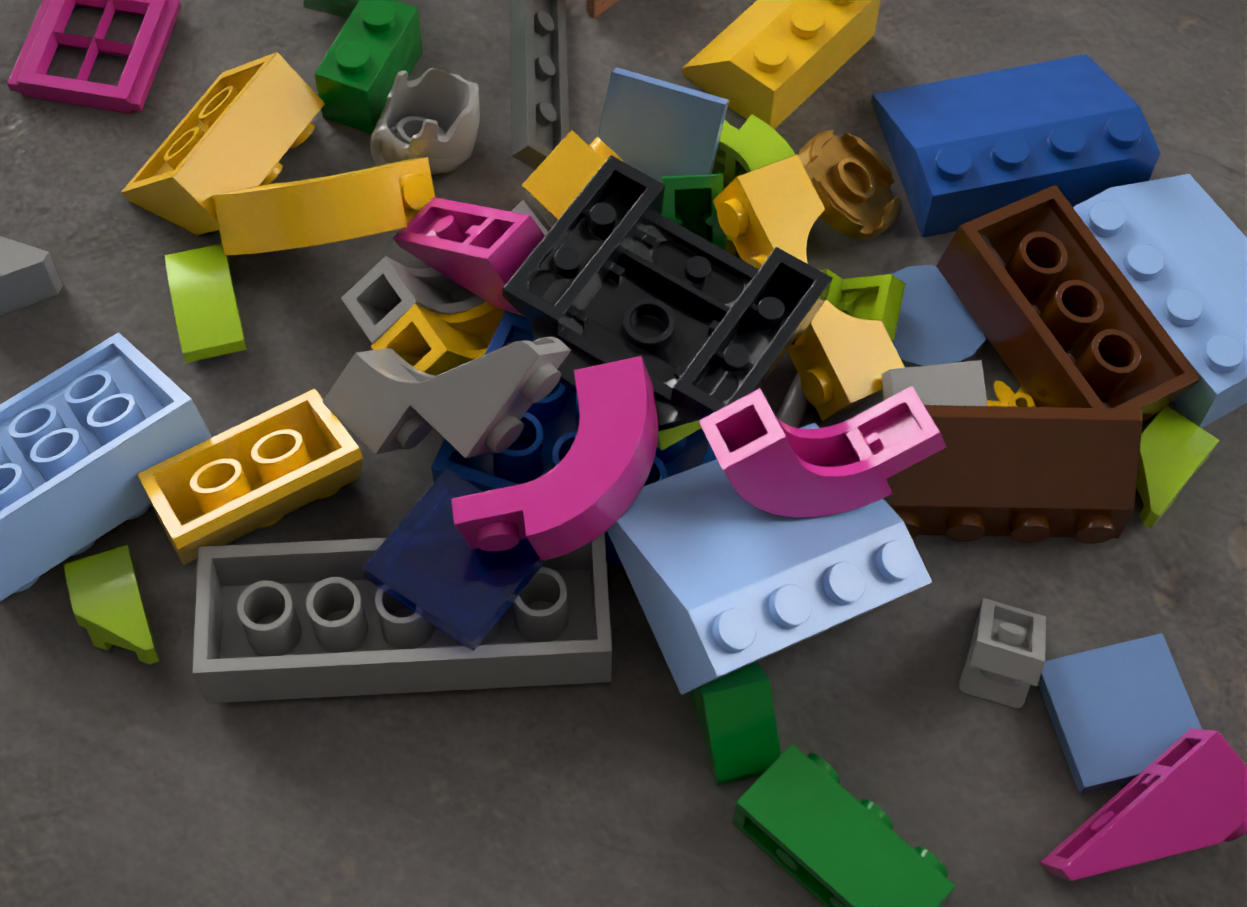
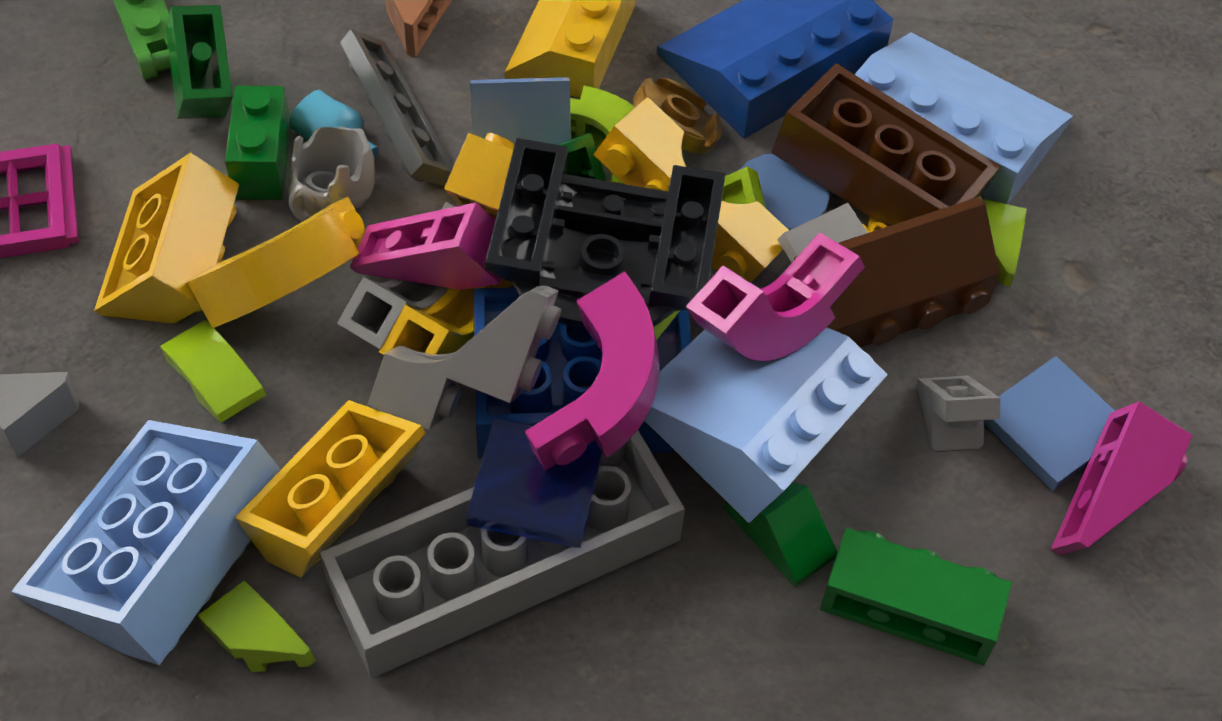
camera: 25 degrees left, 5 degrees down
(457, 52) = (320, 111): none -> medium azure piece

